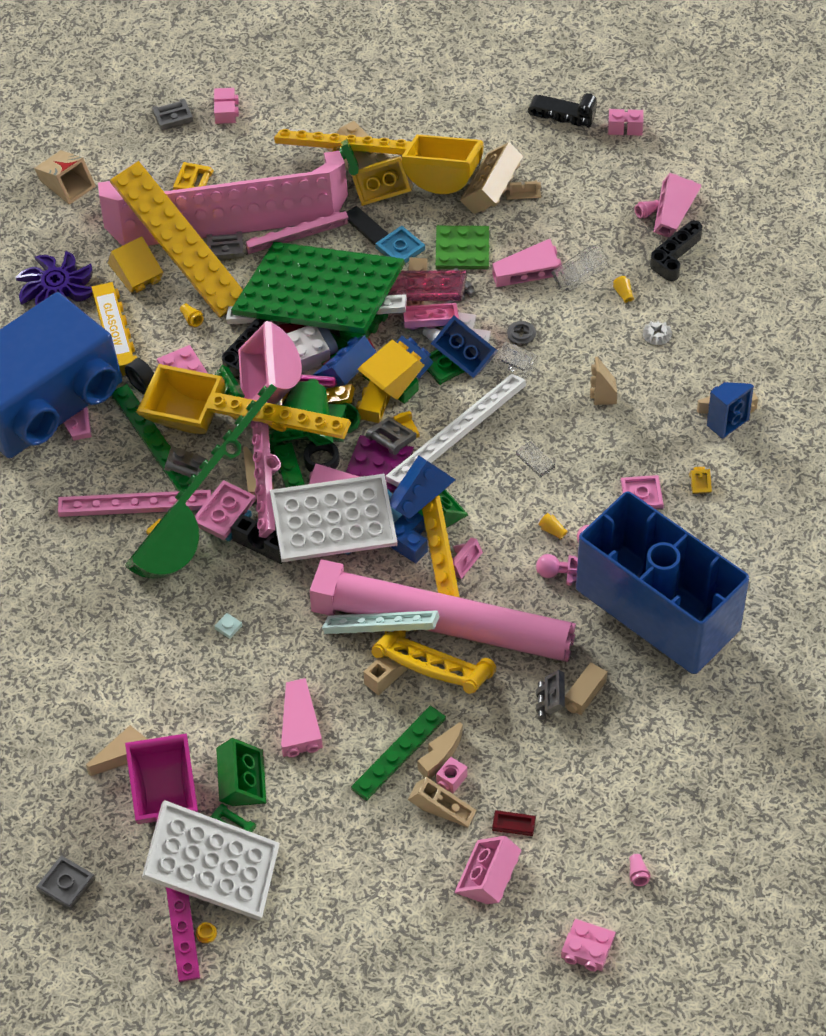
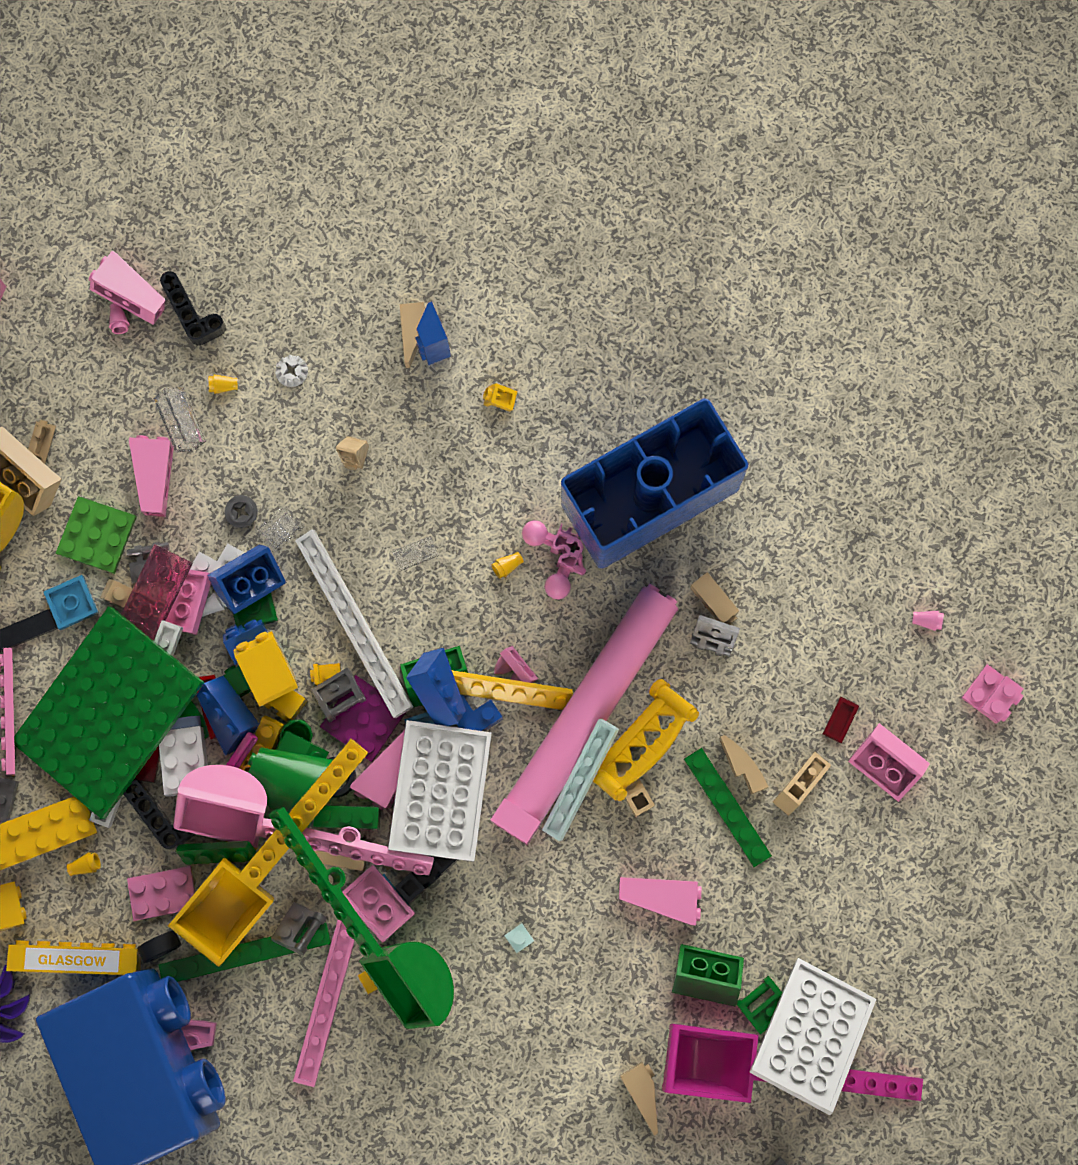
camera: 70 degrees left, 25 degrees up
(206, 932) = (875, 1059): yellow plate -> none
(451, 768) = (774, 754): bright pink brick -> none
(645, 488) = (493, 460): bright pink tile -> none

